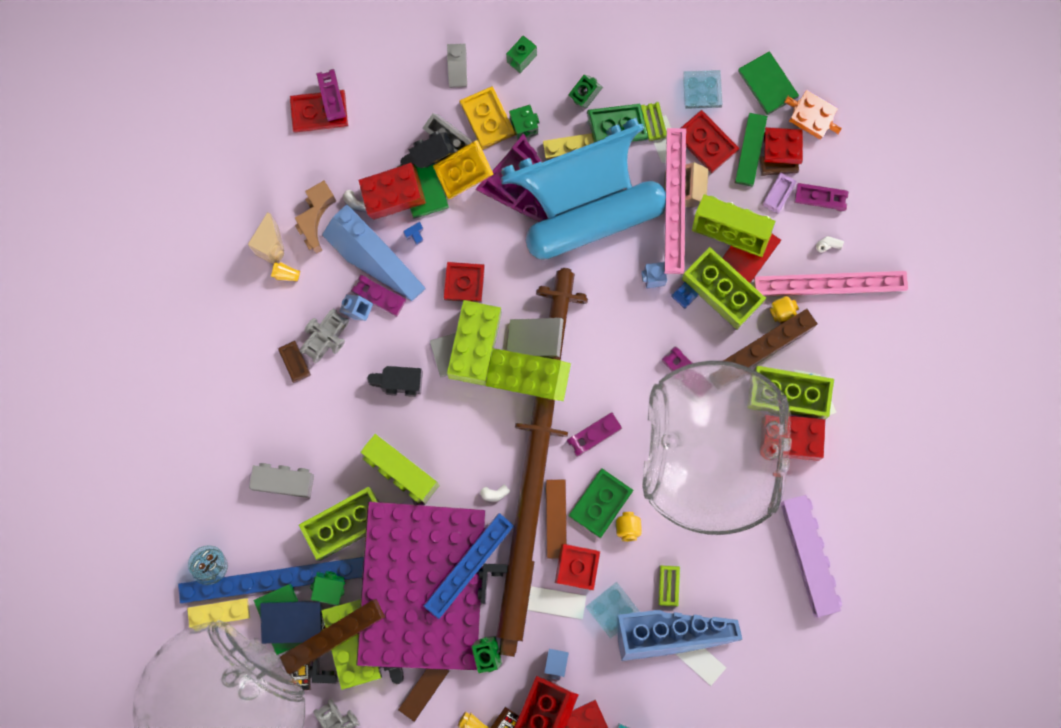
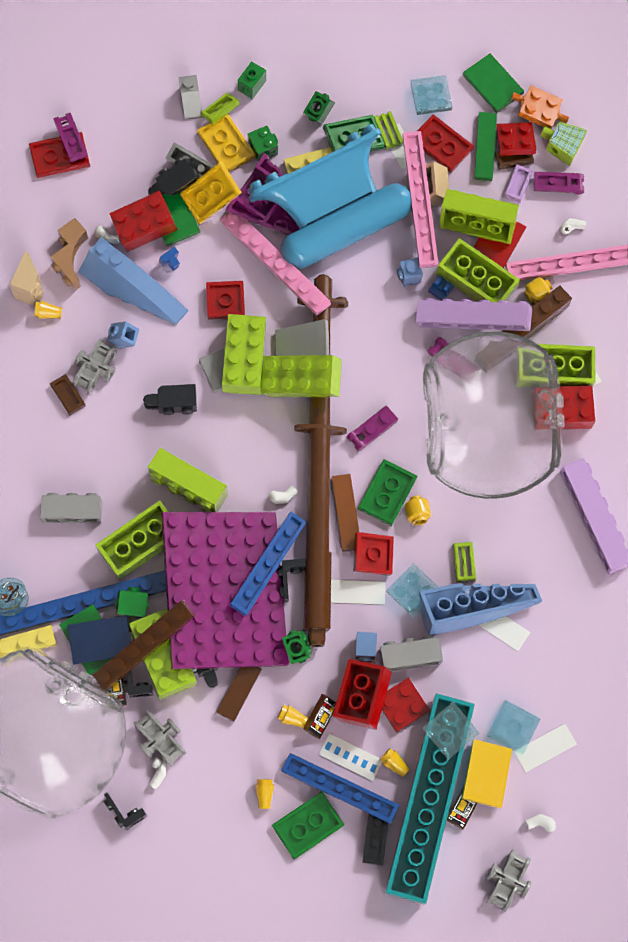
camera: 15 degrees left, 5 degrees down
(379, 296) = (146, 323): magenta plate -> none
(486, 82) = (219, 109): none -> lime tile
(518, 249) = (273, 260): none -> bright pink plate
(601, 676) = (411, 653): none -> light grey brick
(713, 330) = (474, 315): none -> lavender brick
(833, 153) = (564, 141): none -> lime torso

